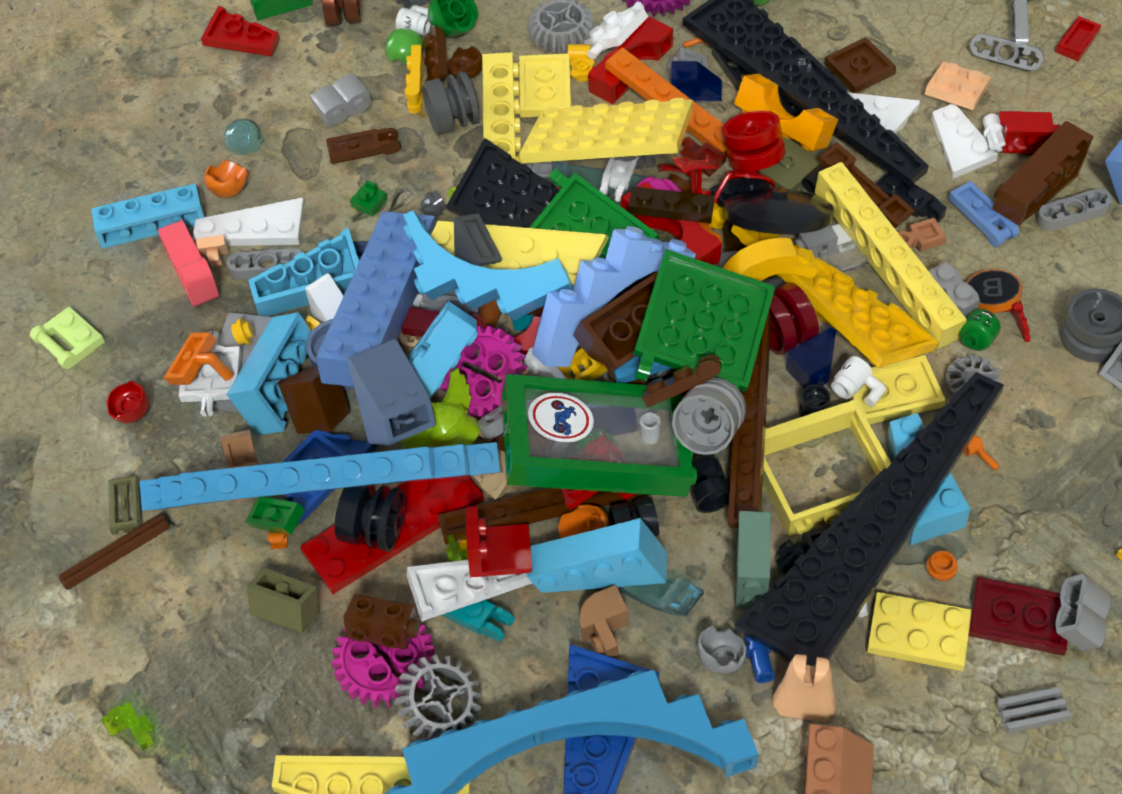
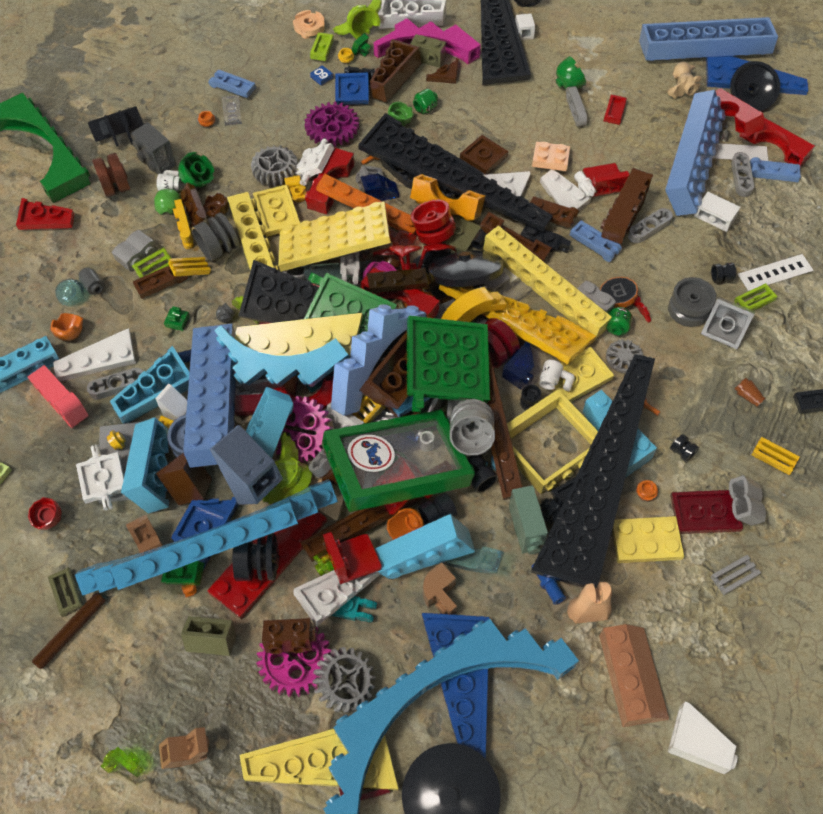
camera: 20 degrees left, 5 degrees up
(191, 357) = (86, 468): orange plate -> none
(209, 731) = (184, 750): none -> medium nougat brick
(212, 248) = (73, 381): light nougat tile -> none
(274, 128) = (91, 281): none -> dark grey brick
(338, 129) = (139, 272): none -> lime tile
(405, 134) = (189, 266): none -> yellow tile
(474, 242) = (269, 338): dark grey slope -> none
(683, 380) = (447, 406): reddish brown hinge -> none
(721, 650) = (526, 589): light grey hair -> none
(924, 235) = (563, 263): nougat plate -> none
(939, 162) = (557, 211): none -> reddish brown plate
(990, 40) = (571, 120): light grey beam -> none
(1016, 522) = (684, 448): none -> black wheel

